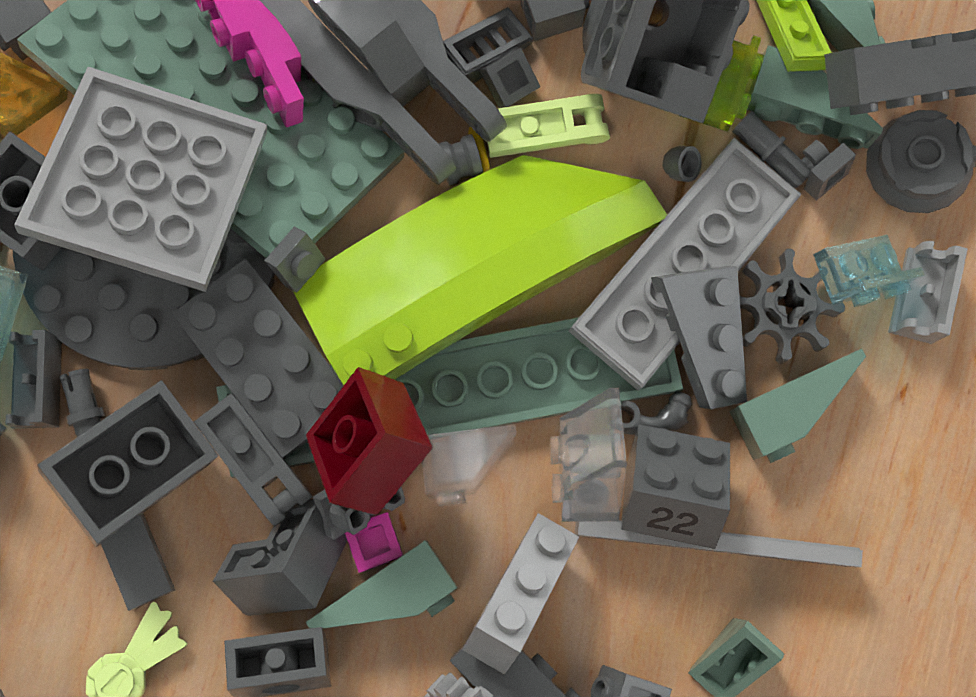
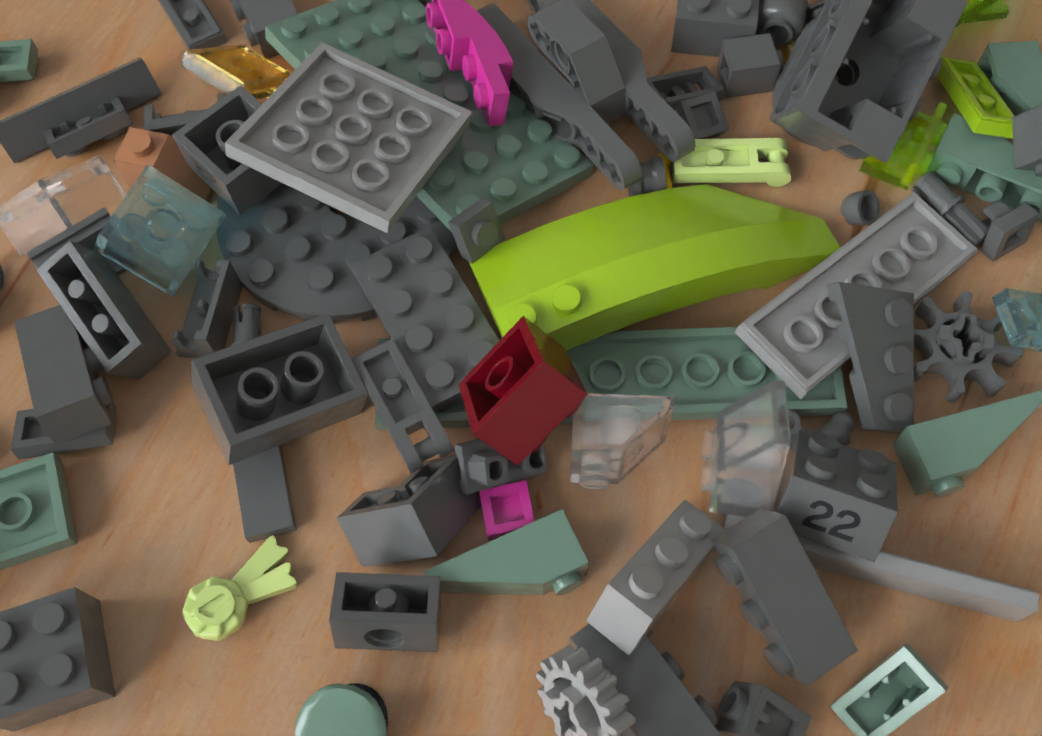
camera: 15 degrees right, 15 degrees down
(634, 592) = (783, 596): none -> dark grey brick

